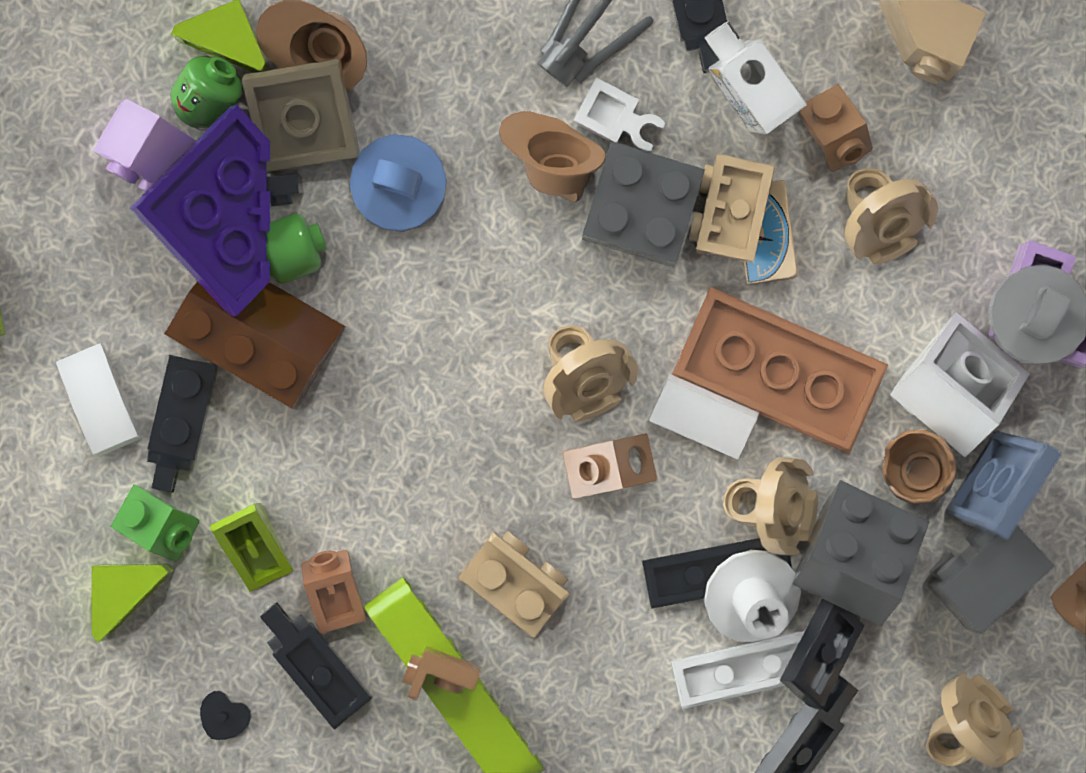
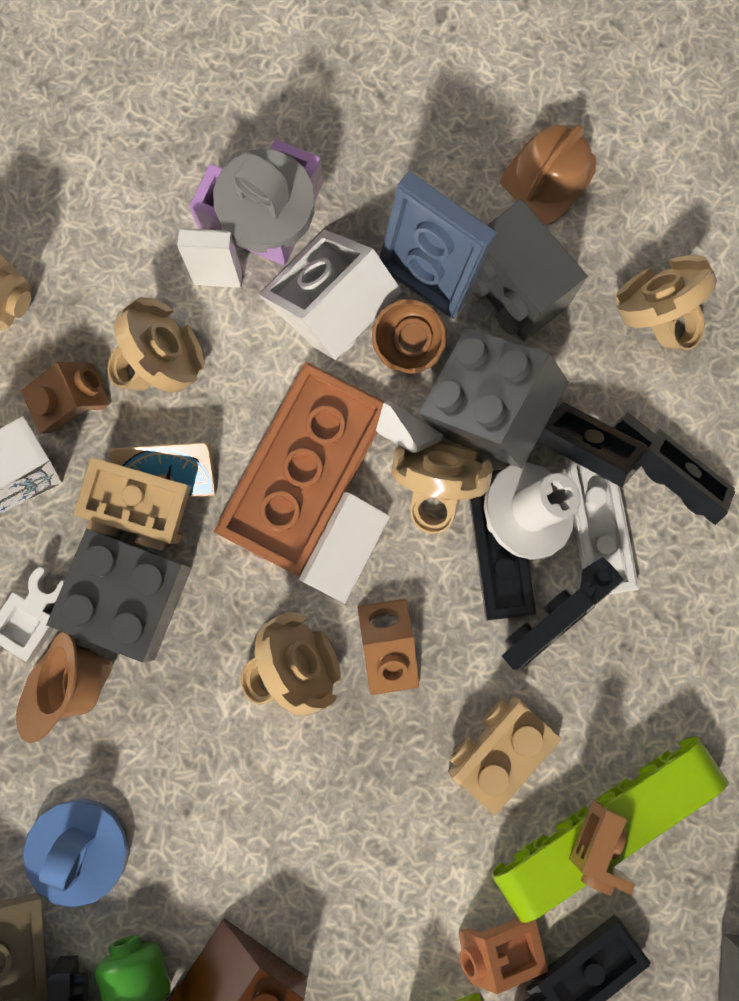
camera: 90 degrees left, 5 degrees down
(653, 633) = (563, 613): none -> black hinge
(824, 470) = (406, 429): none -> white slope
(982, 264) = (210, 257): none -> white tile

